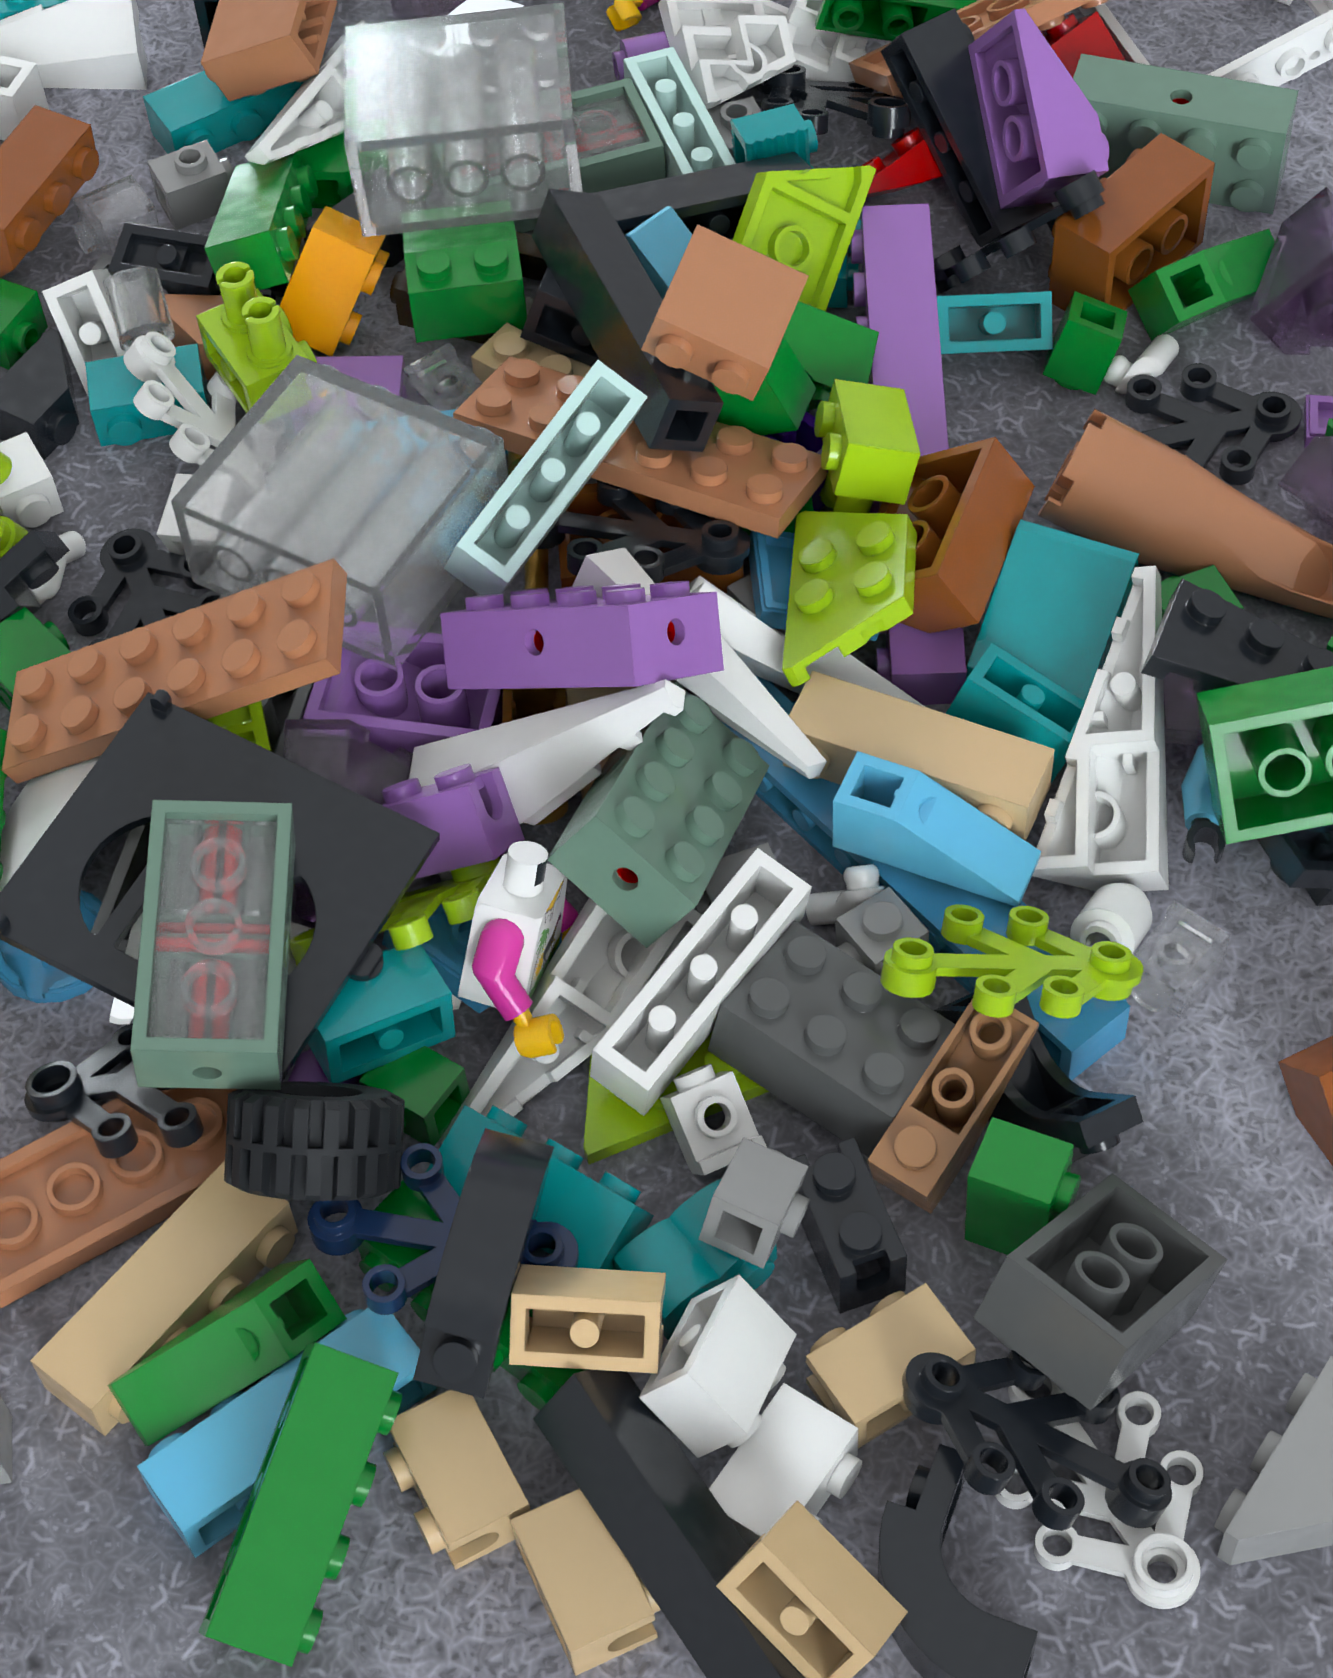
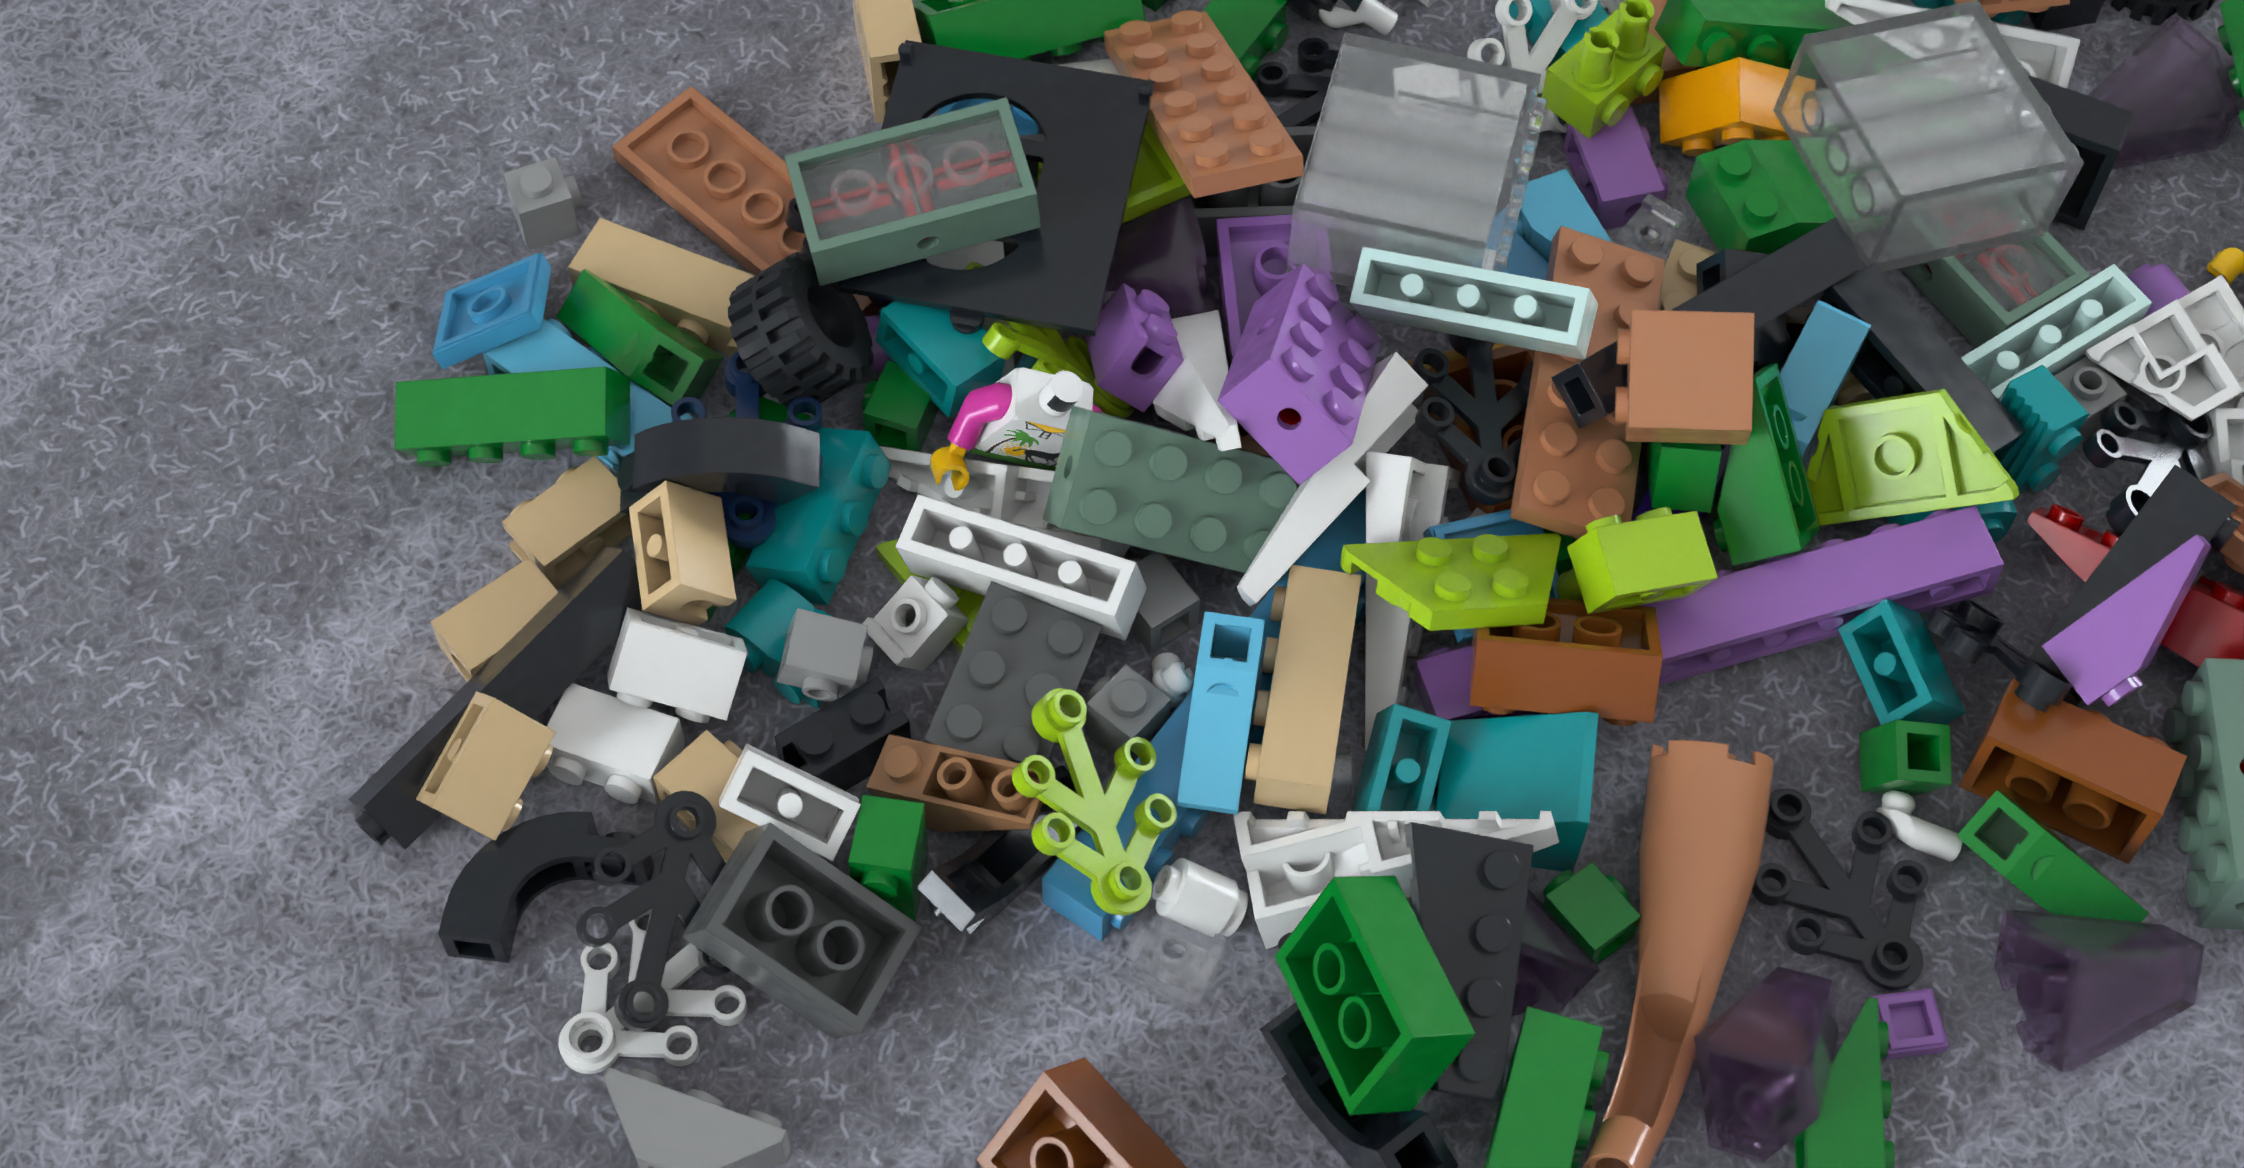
camera: 70 degrees right, 5 degrees up
(120, 1515) = (492, 310): none -> dark azure tile
(951, 1259) = (791, 799): none -> white brick

